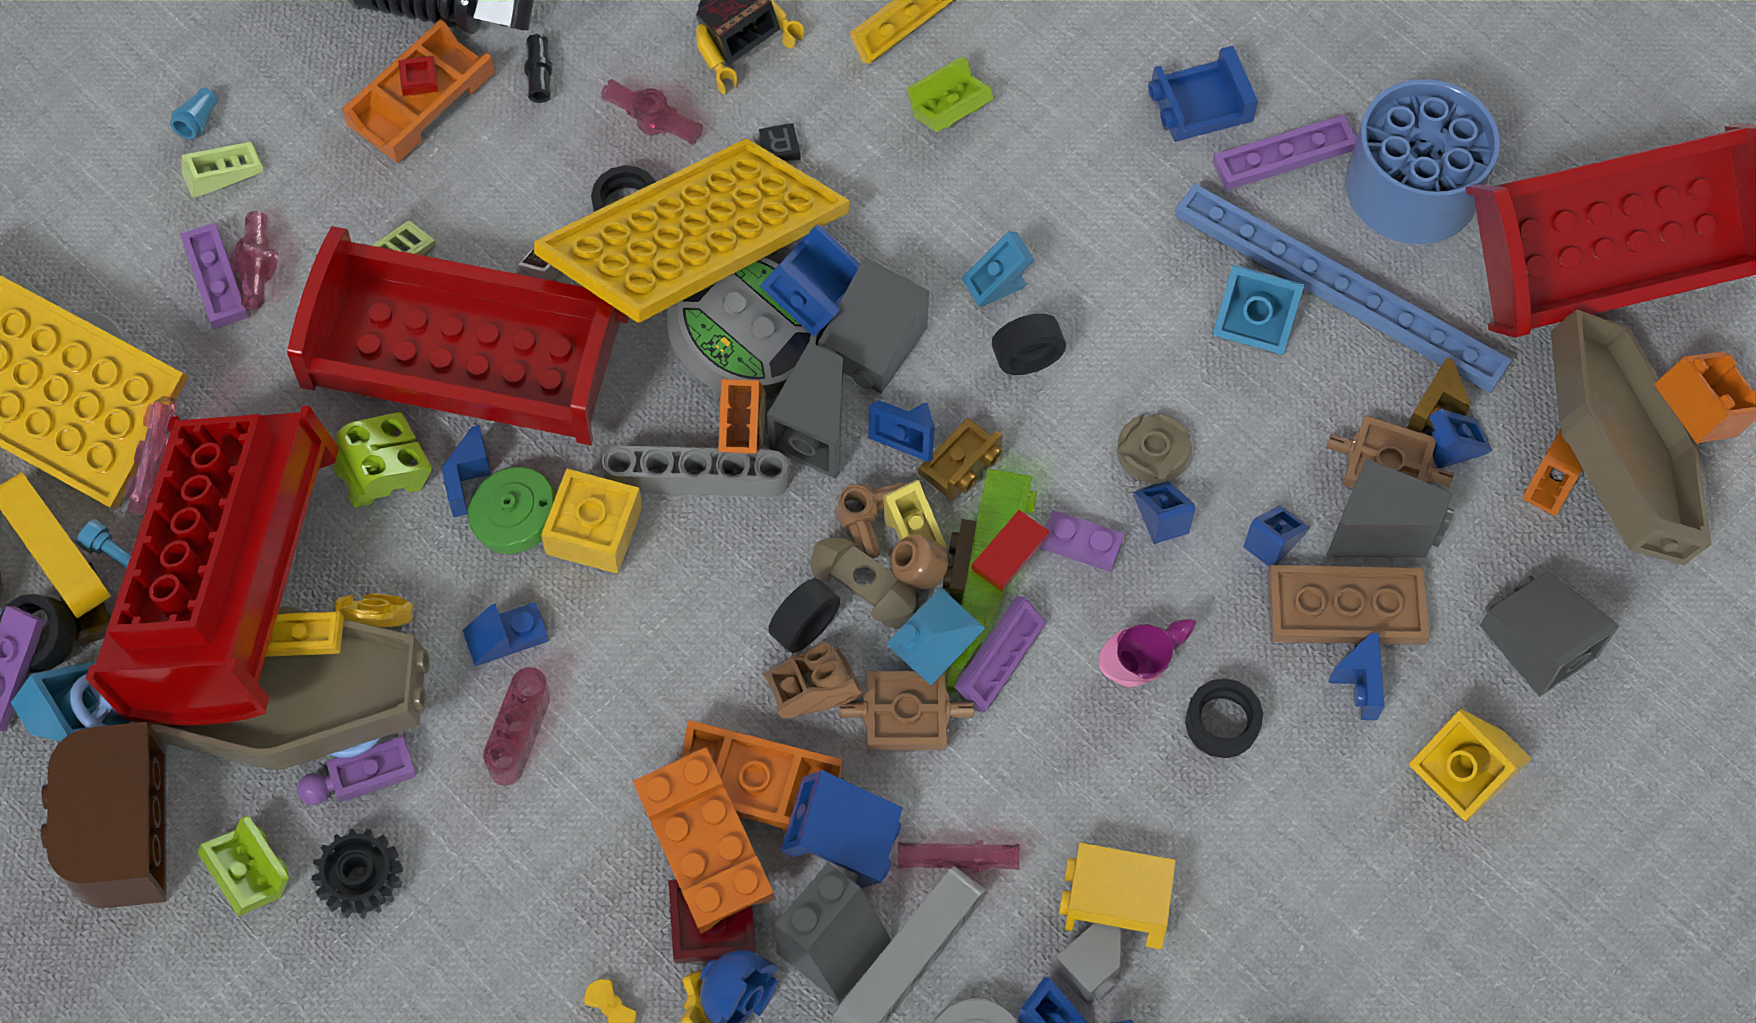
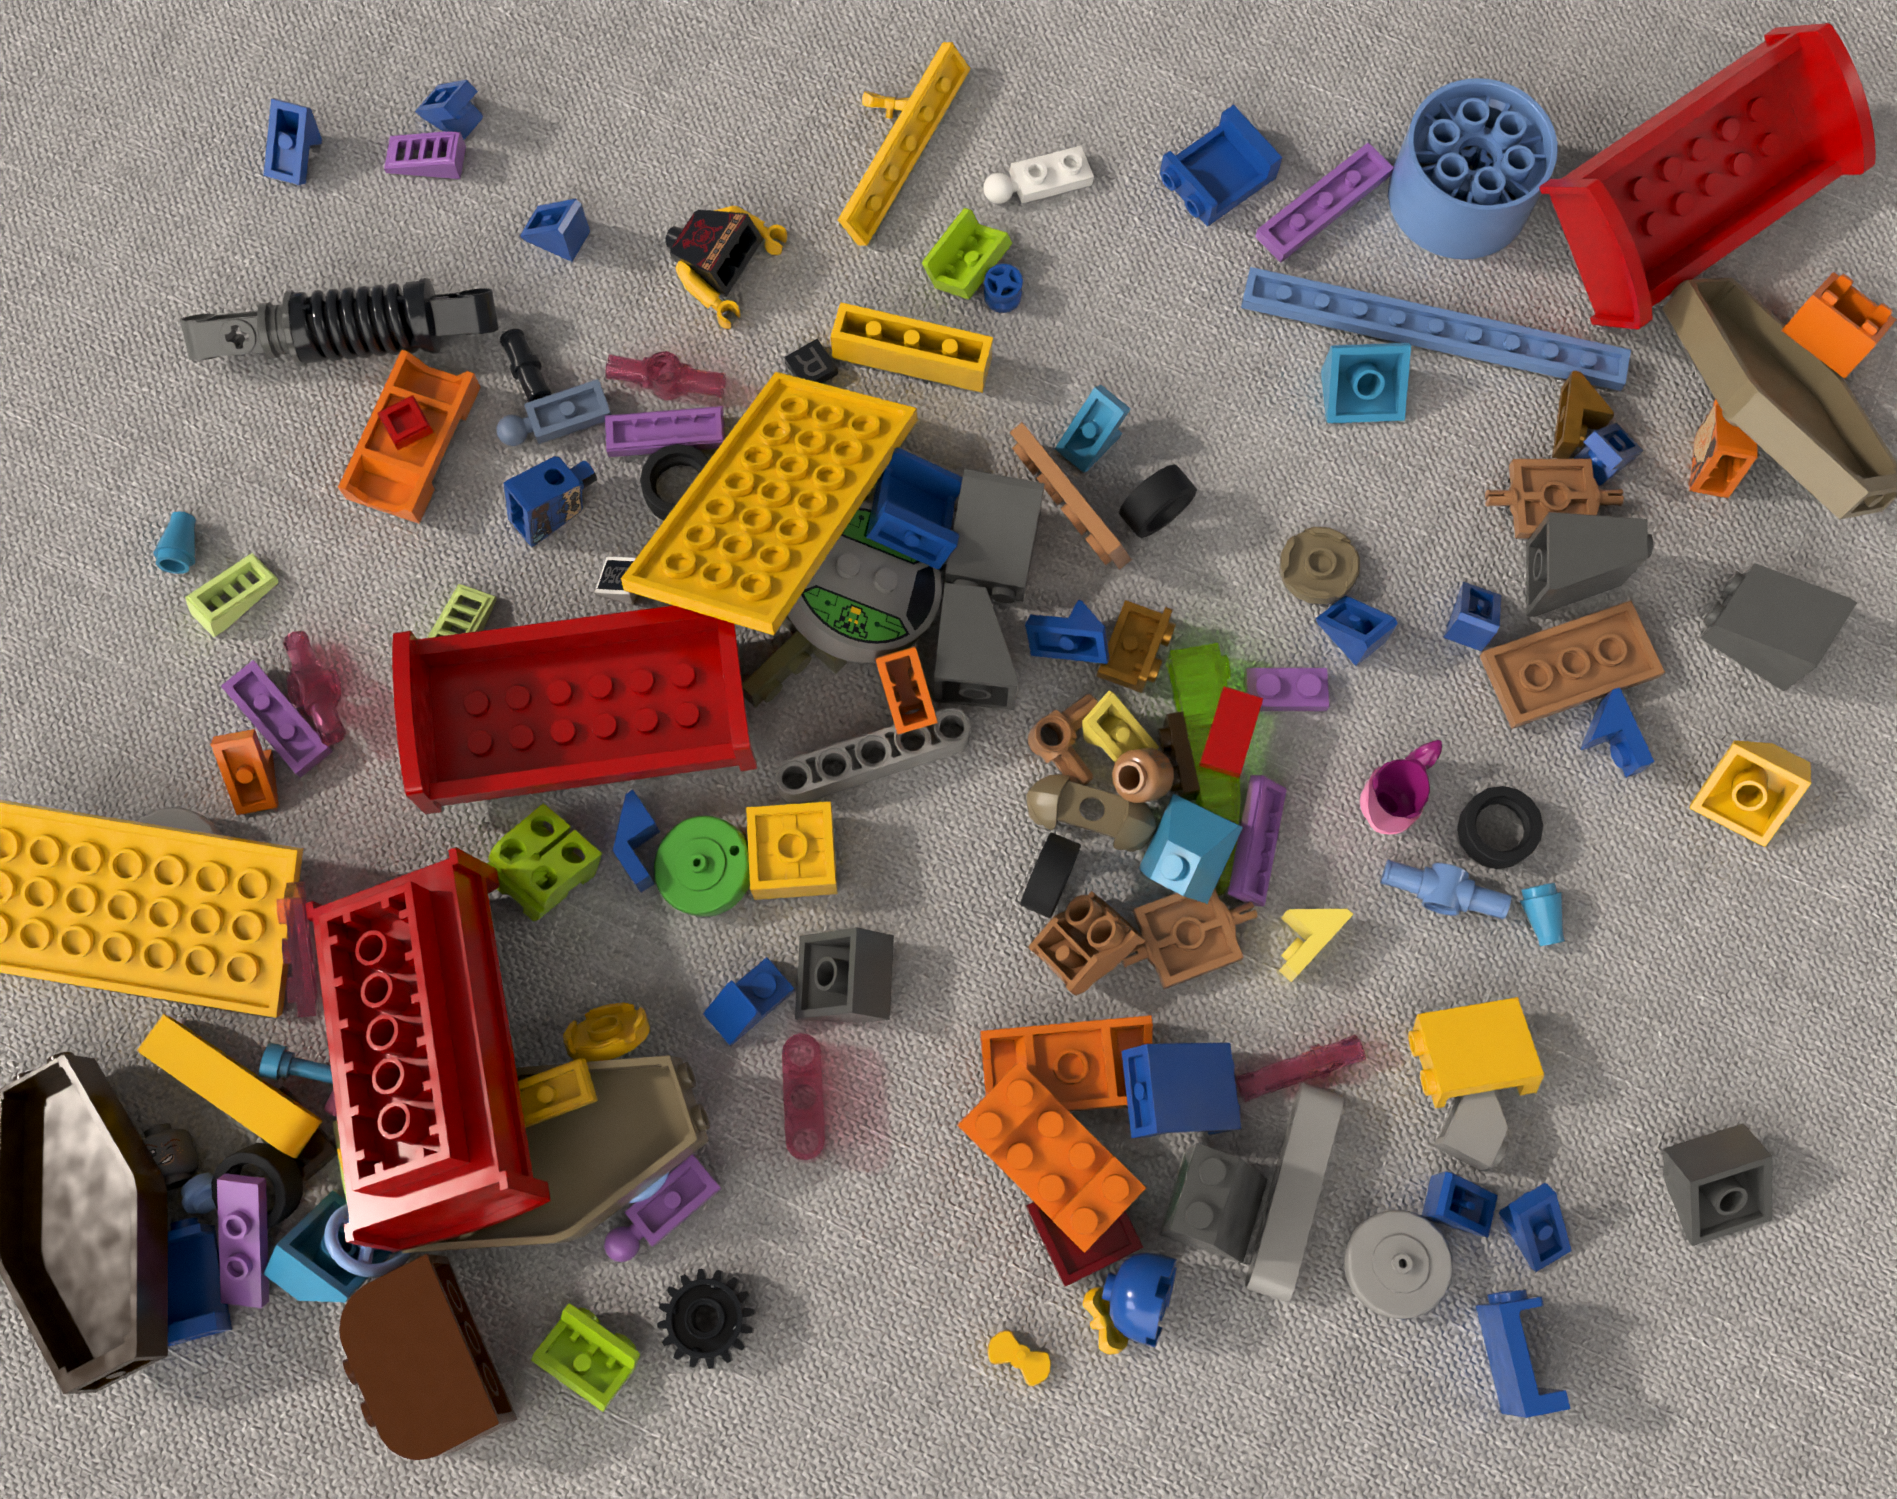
camera: 20 degrees left, 10 degrees up
(171, 306) = (246, 771): none -> orange slope
(509, 173) = (546, 497): none -> blue torso
(548, 113) = (556, 415): none -> sand blue plate
(595, 639) = (844, 976): none -> dark grey slope
(613, 150) = (651, 431): none -> medium lavender plate
(650, 371) = (788, 659): none -> olive bracket
(869, 153) = (911, 347): none -> yellow brick
(952, 318) = (1060, 490): none -> medium nougat plate
(966, 125) = (1002, 278): none -> blue wheel
(1023, 746) = (1317, 929): none -> light yellow slope
(1043, 55) = (1041, 177): none -> white plate
(1152, 752) = (1446, 889): none -> medium blue pin
(1234, 802) = (1544, 912): none -> dark azure cone

